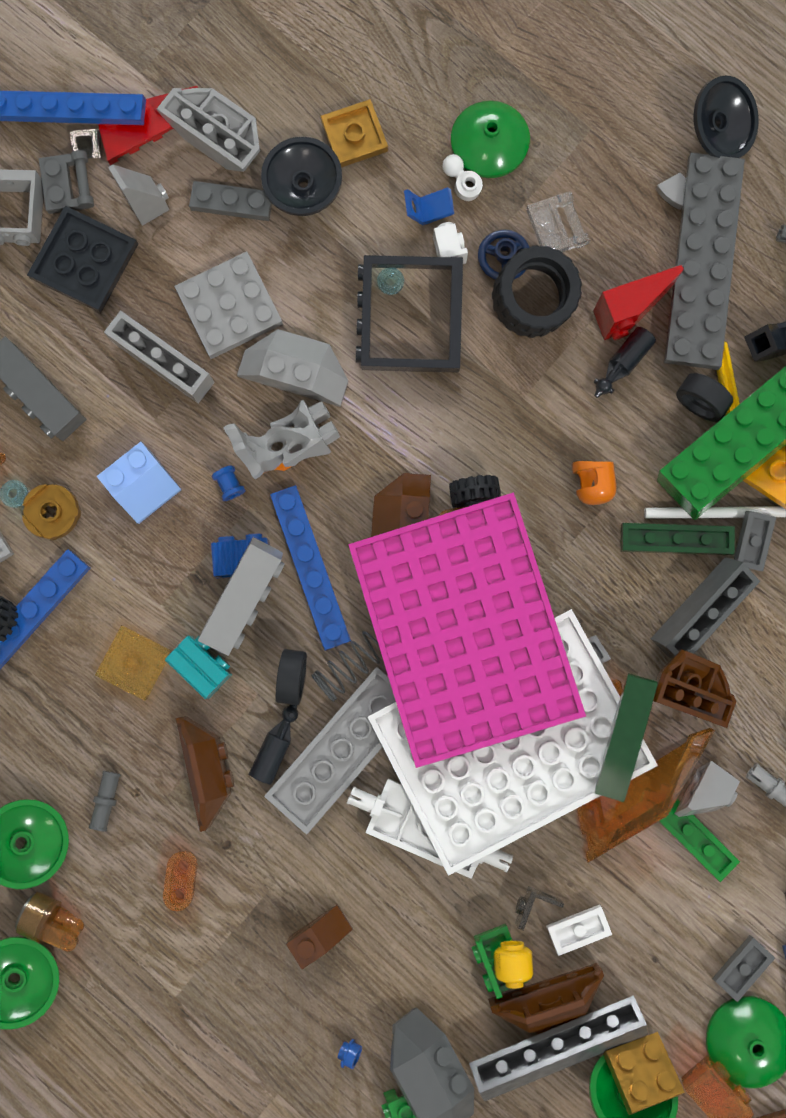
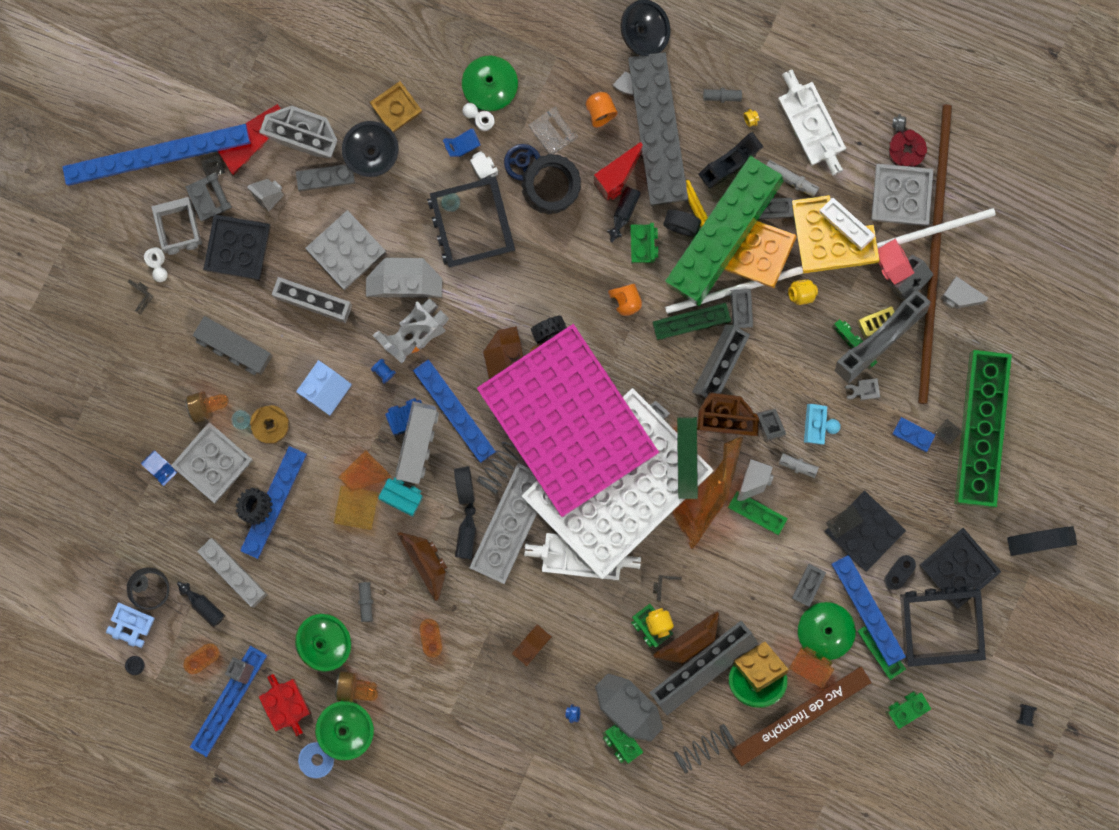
camera: 20 degrees left, 0 degrees up
(157, 617) = (364, 473): none -> clear orange wing
(579, 930) = (697, 592): white plate -> none
(633, 203) = (600, 105): none -> orange helmet
(640, 412) = (642, 243): none -> green bracket
(751, 719) = (771, 425): none -> dark grey slope

